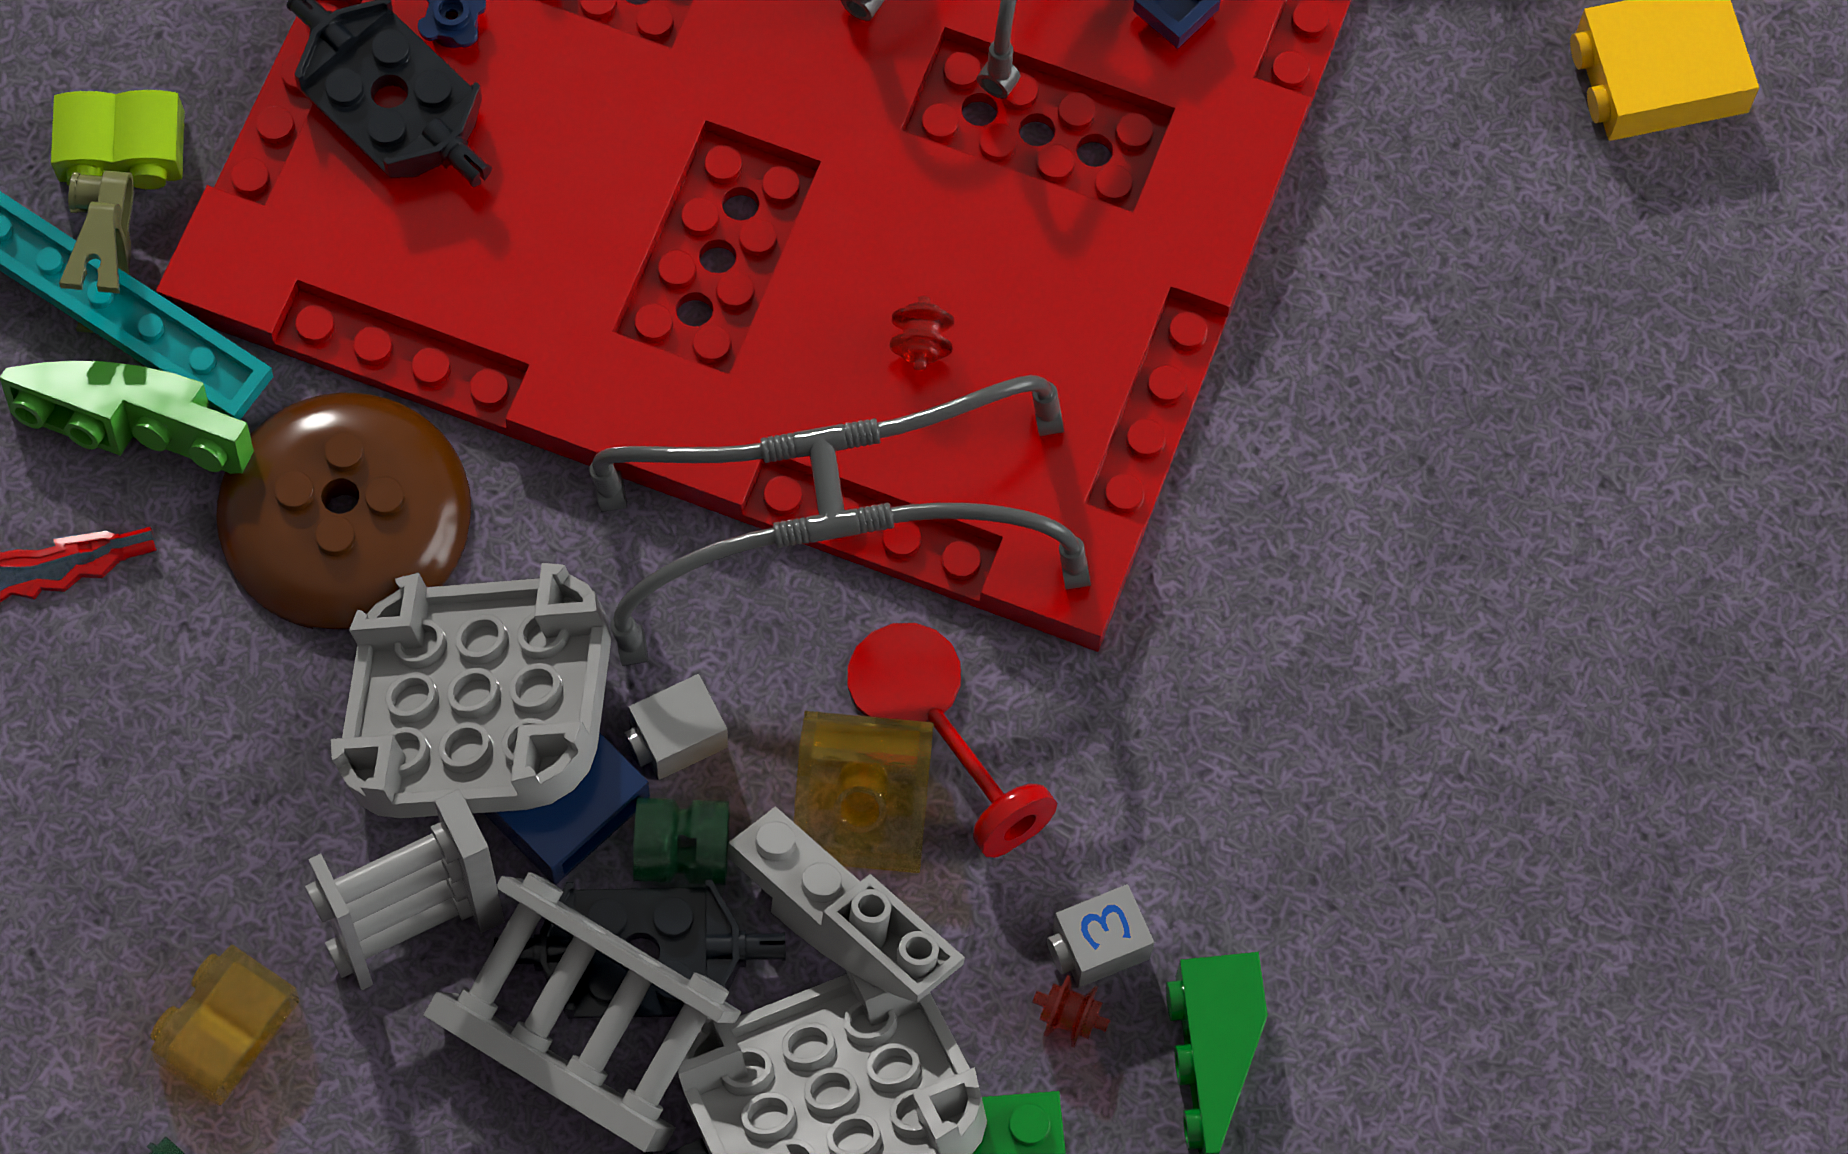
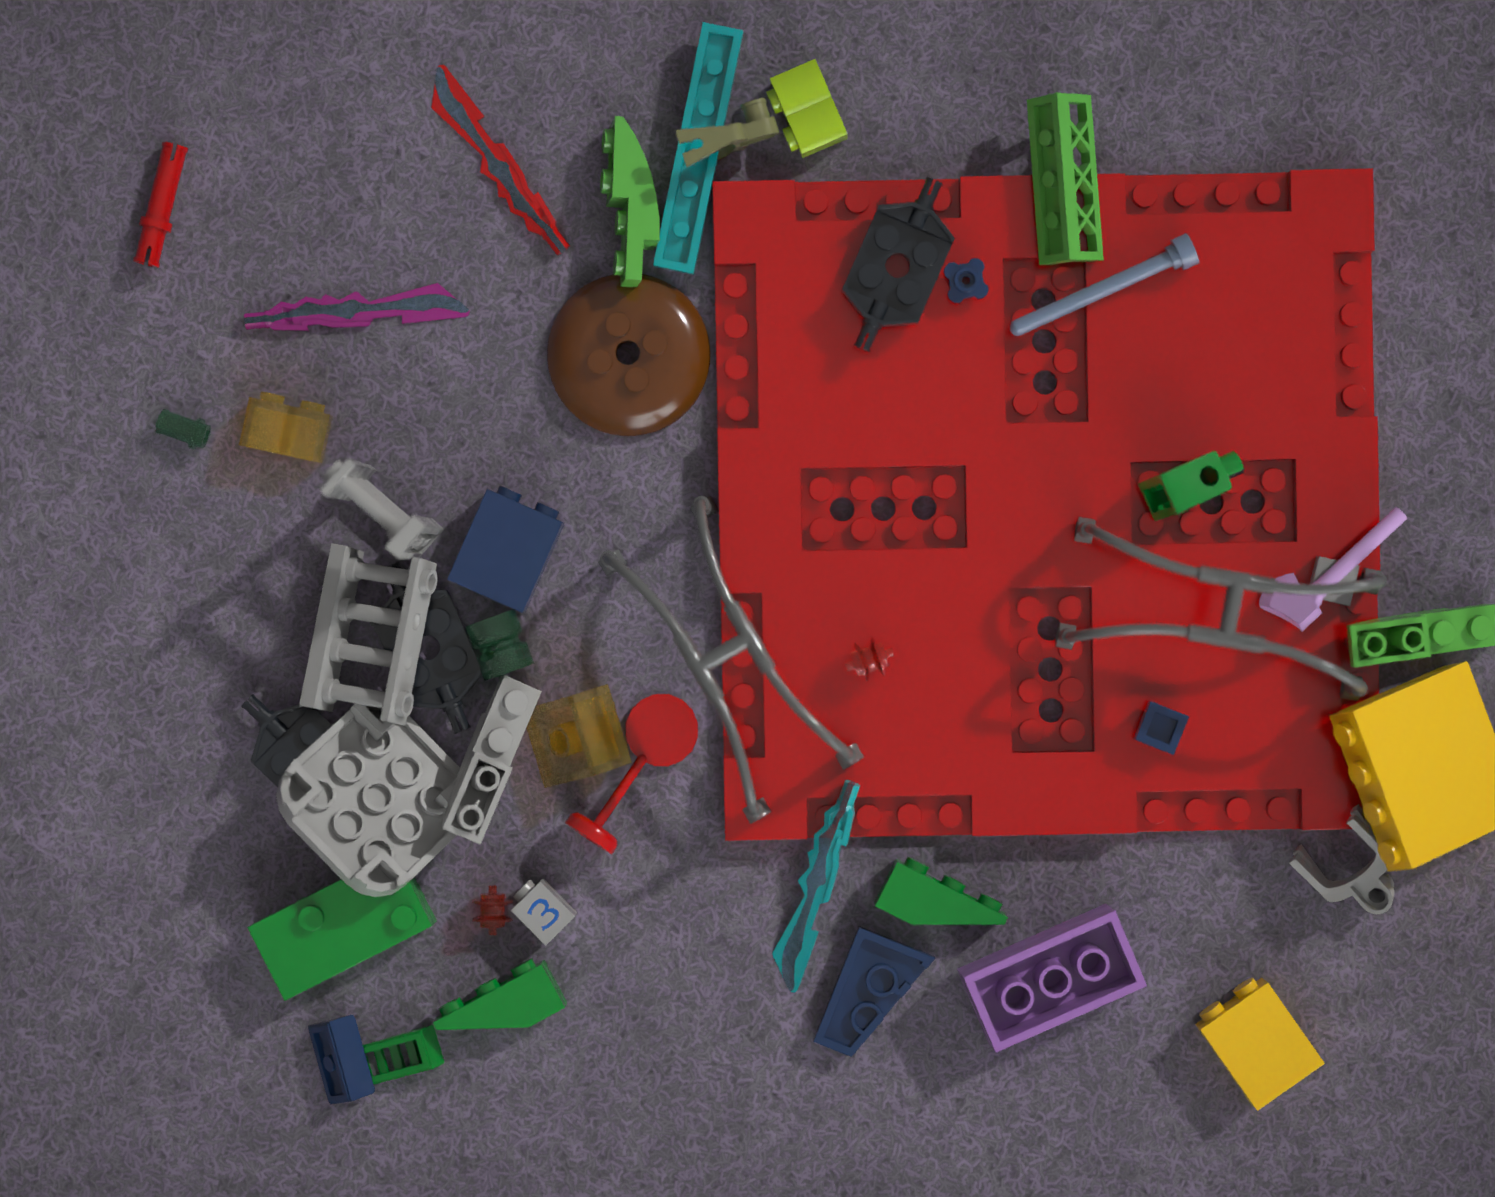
camera: 70 degrees right, 20 degrees up
(98, 864) = (414, 306): none -> magenta sword
(475, 694) = (531, 489): light grey tile -> none
(675, 728) = (568, 611): light grey brick -> none
(1214, 541) = (817, 883): none -> teal sword
(1289, 412) = (928, 901): none -> green slope
(1390, 535) = (867, 988): none -> dark blue wing
(1471, 282) = (1051, 977): none -> medium lavender brick

